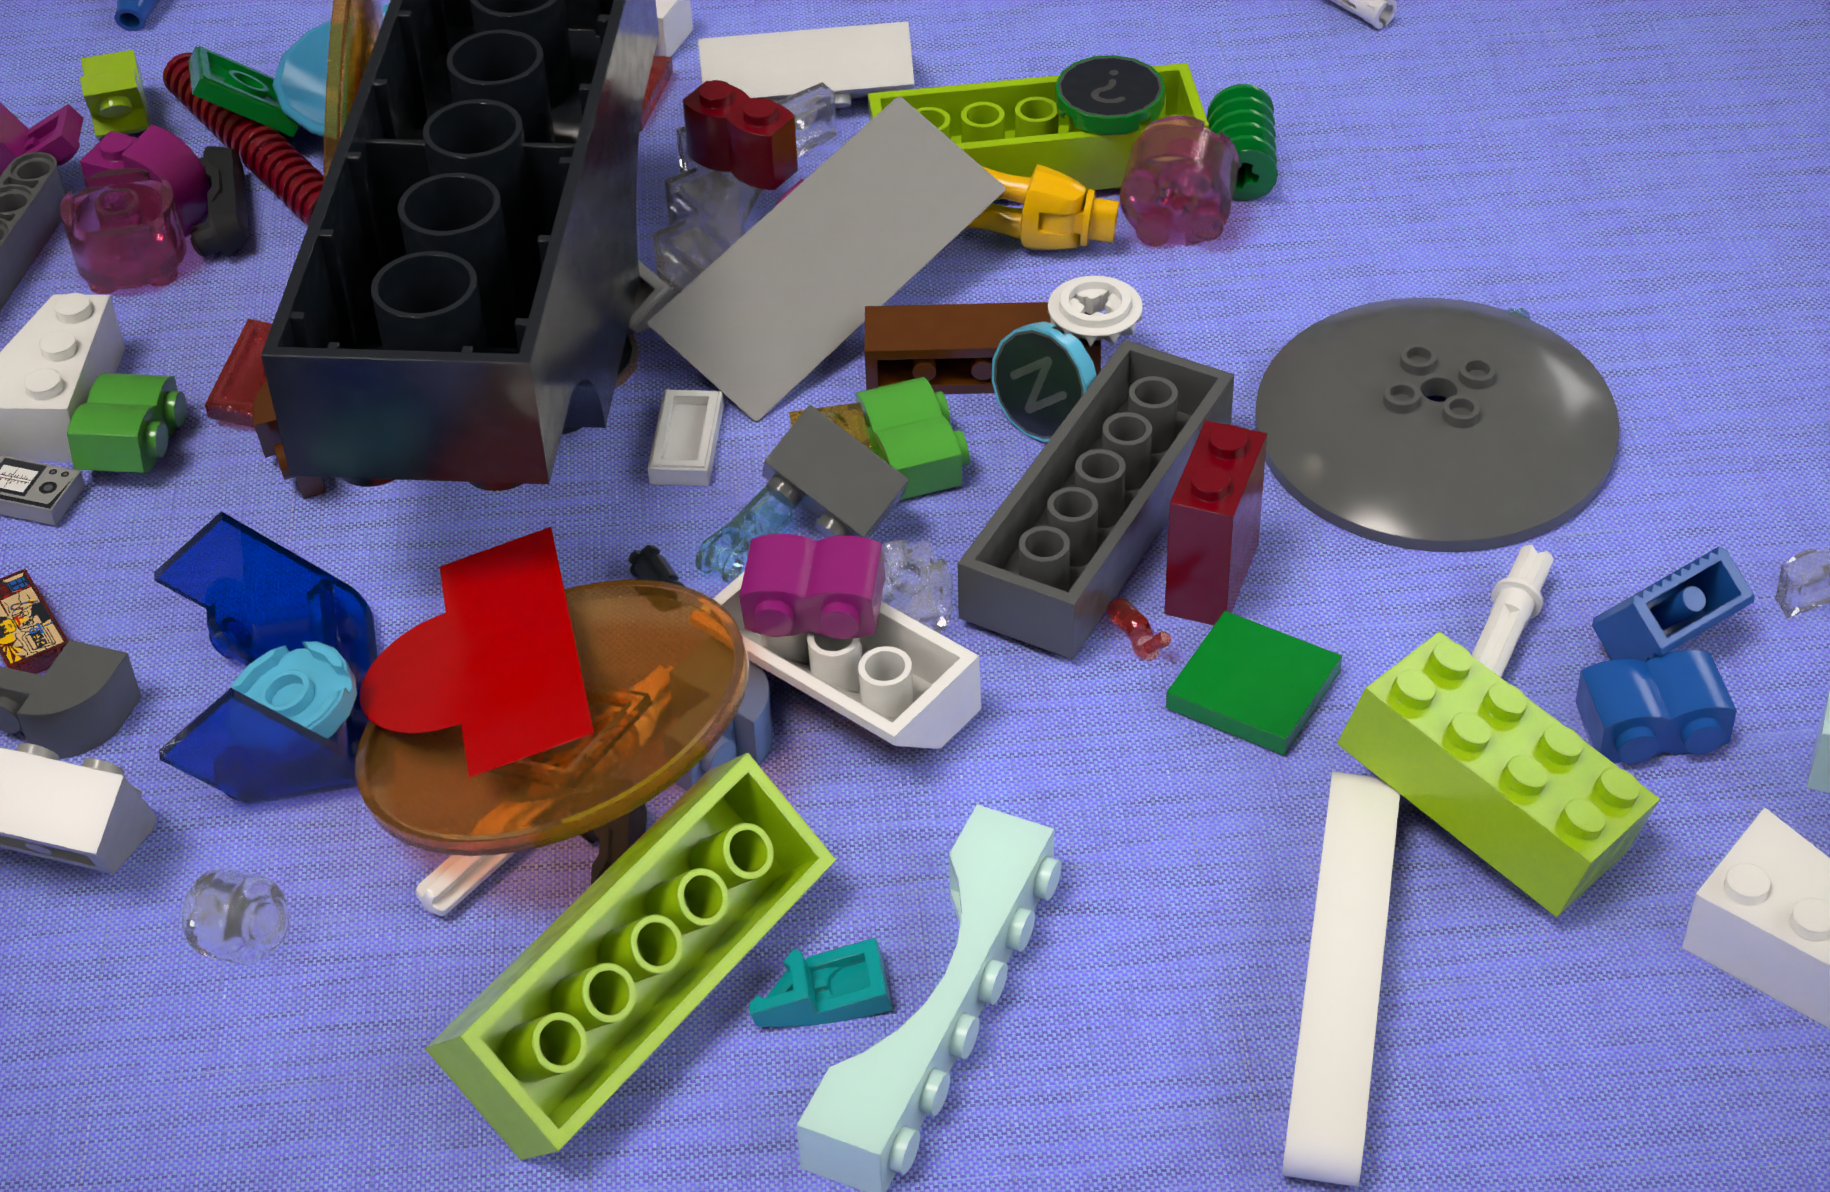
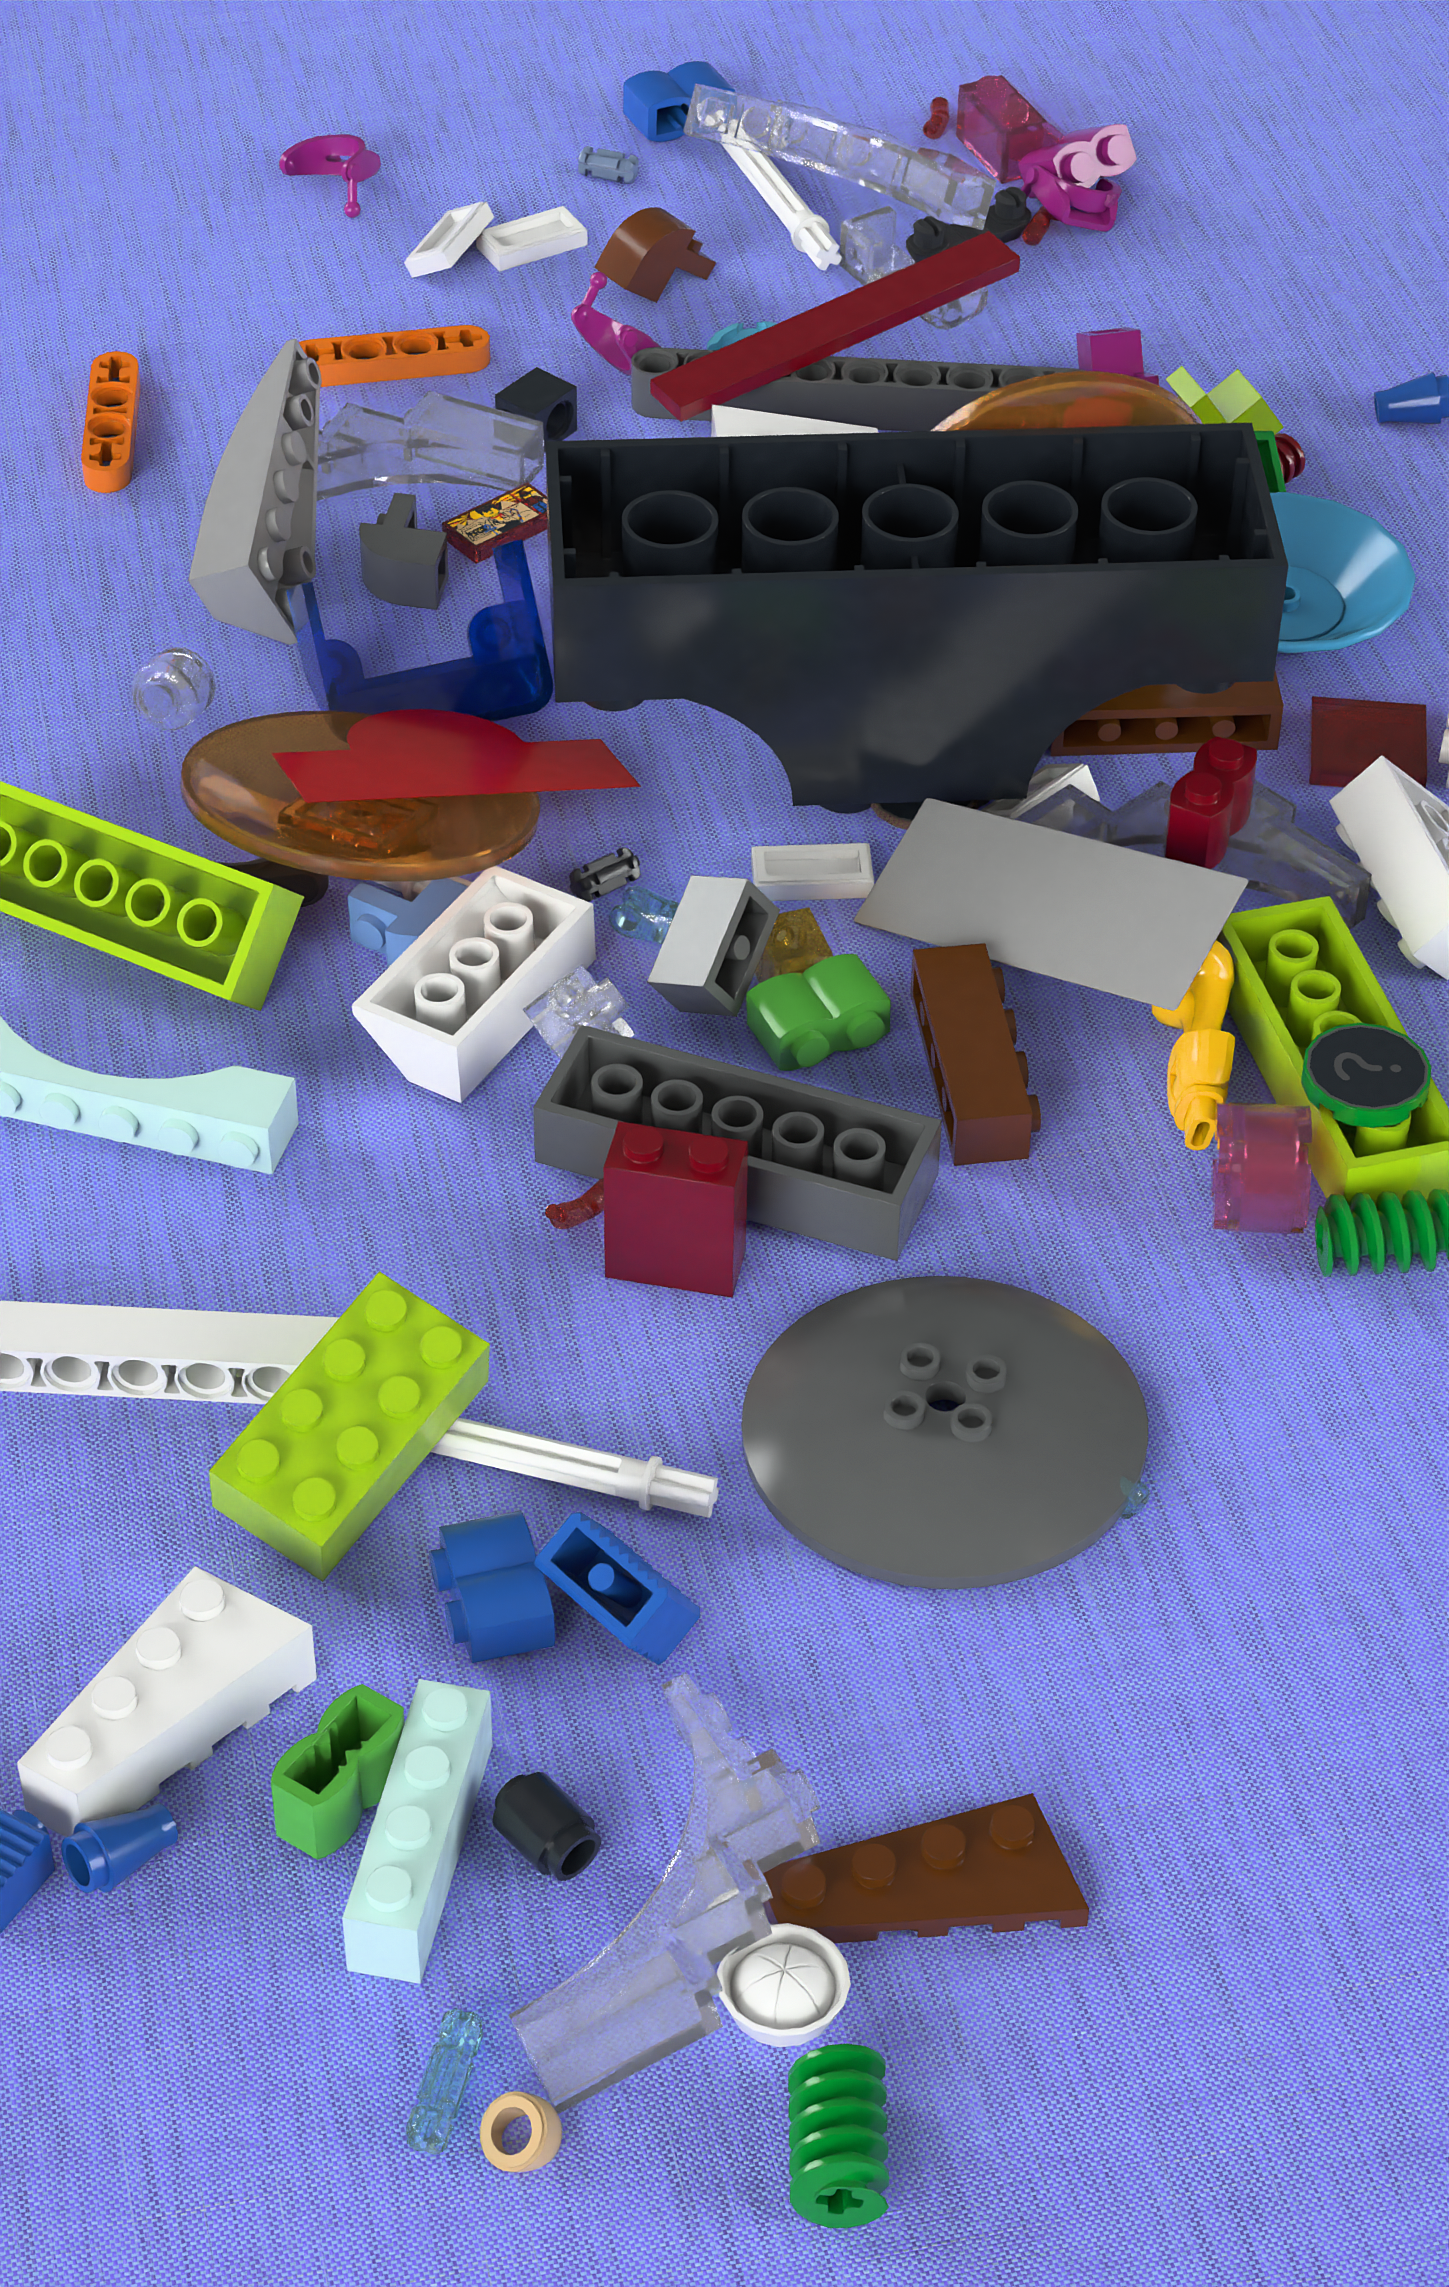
camera: 80 degrees right, 0 degrees up
(303, 685) = (386, 662): medium azure tile -> none
(812, 586) = (504, 915): magenta brick -> none
(826, 988) = (125, 1035): teal slope -> none
(1040, 377) = (904, 1070): black tile -> none
(1091, 295) = (983, 1083): white gear -> none
(1254, 682) = (519, 1290): green tile -> none

